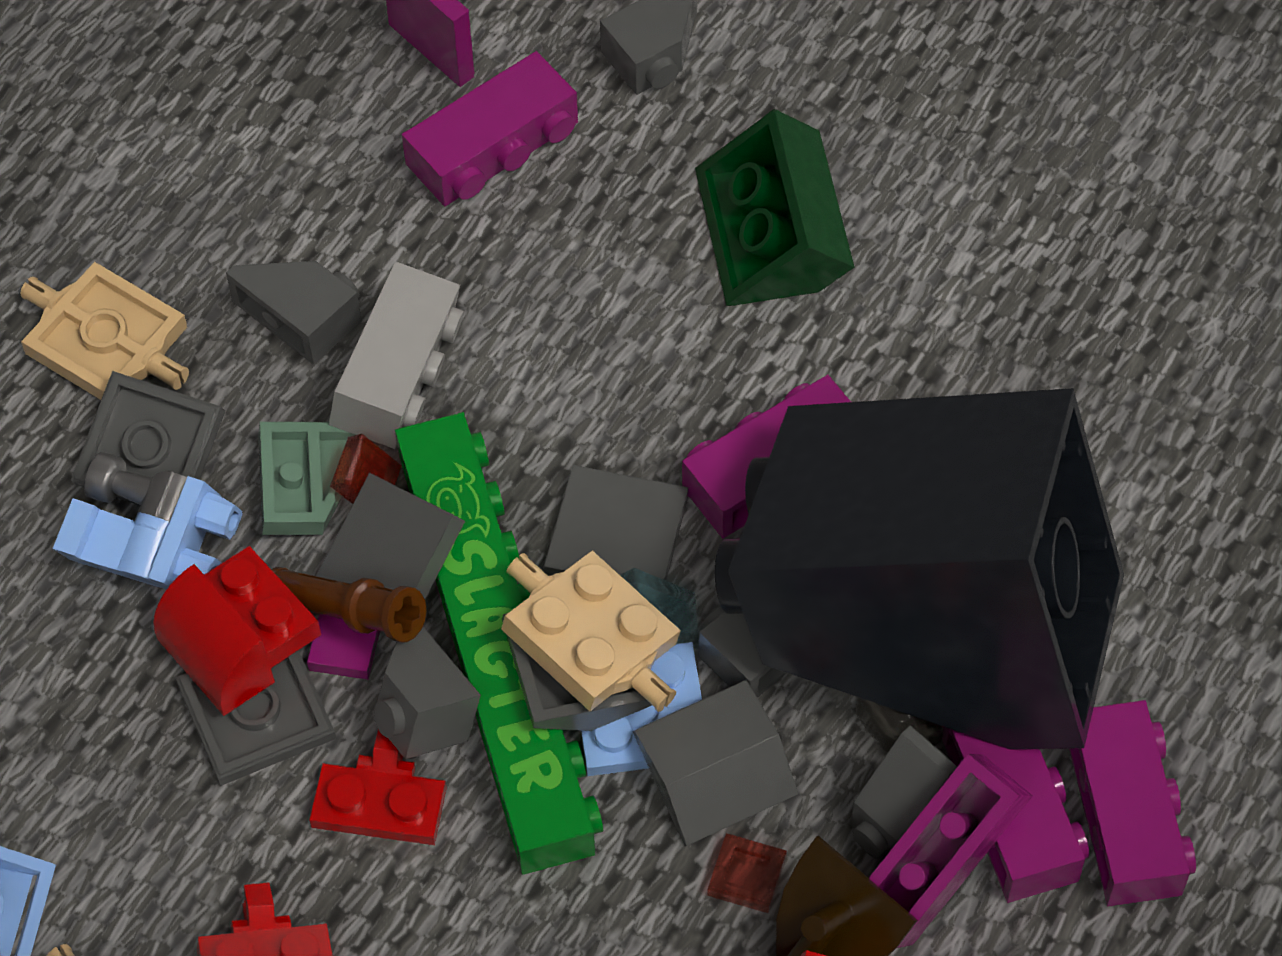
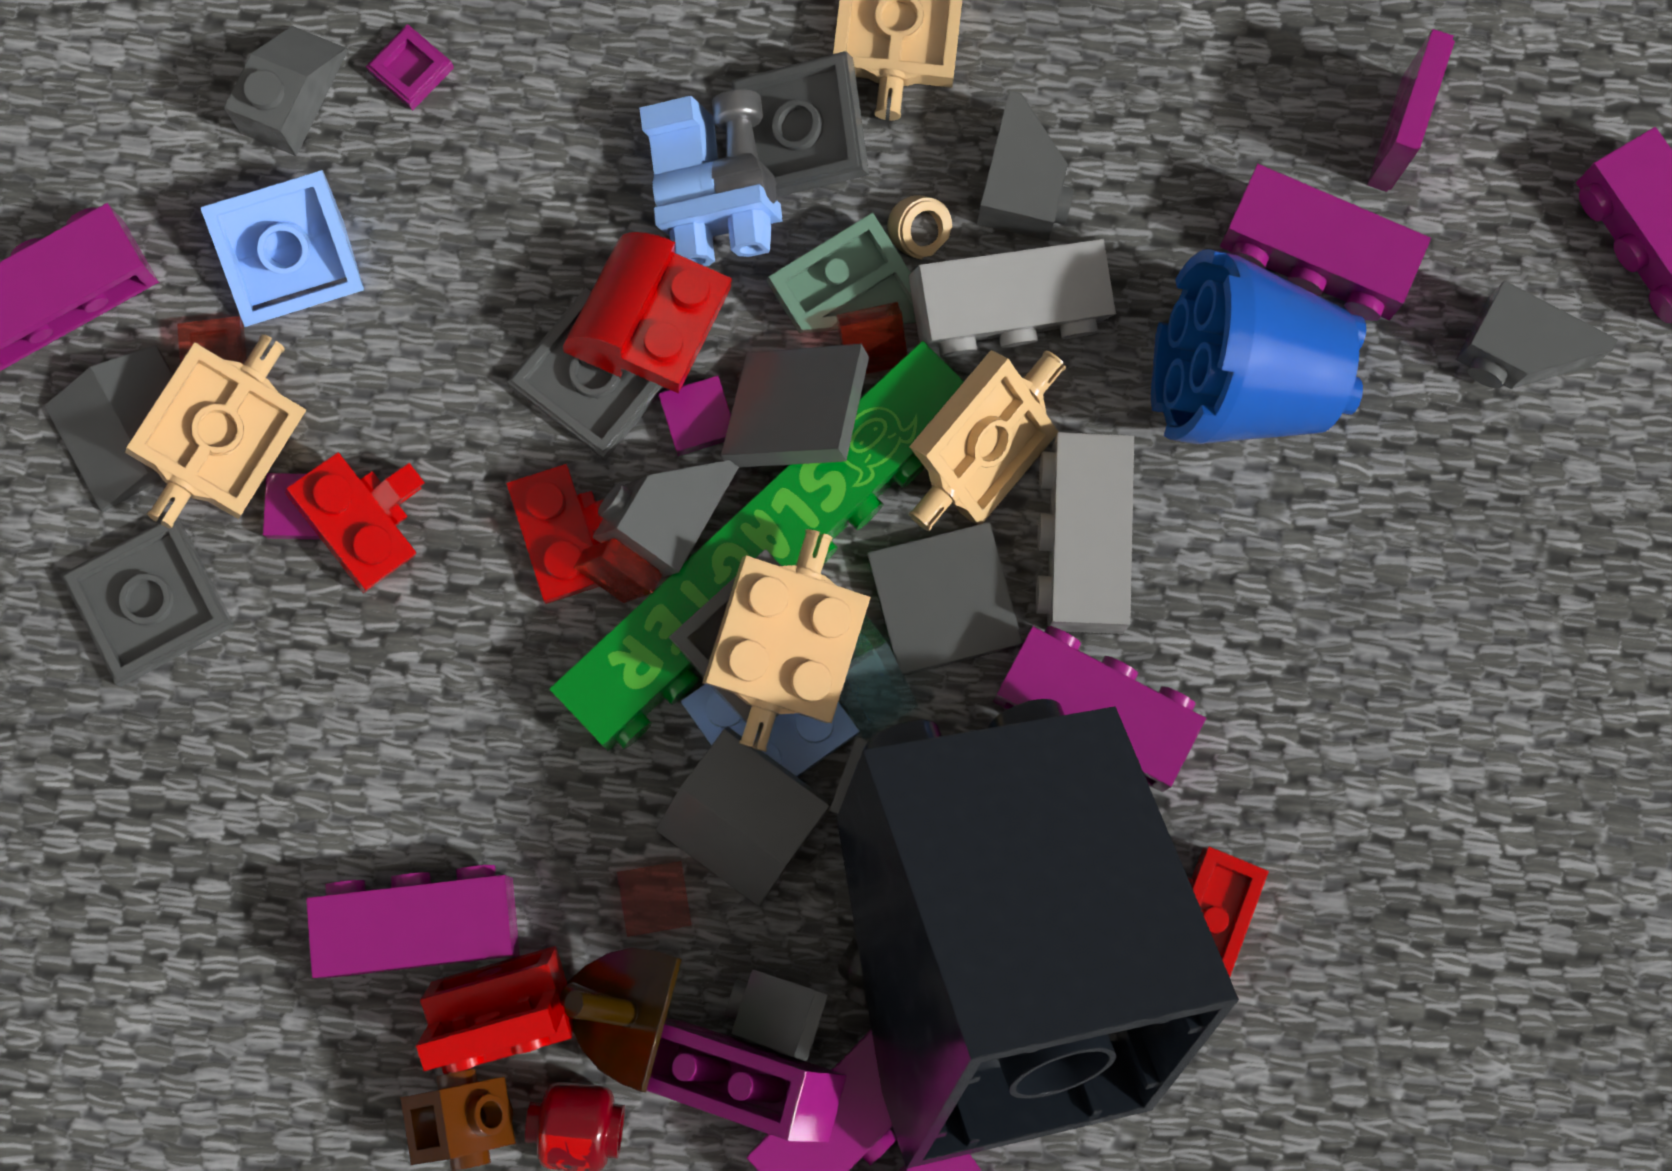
camera: 60 degrees right, 20 degrees up
(274, 408) = (901, 220): none -> tan piece
(361, 604) = (717, 413): reddish brown pin -> none
(447, 754) = (618, 570): none -> clear red tile
(504, 424) = (985, 438): none -> tan plate
(550, 210) = (1252, 355): none -> blue cone
(625, 395) = (1087, 533): none -> light grey brick
(773, 212) = (1380, 568): dark green slope -> none

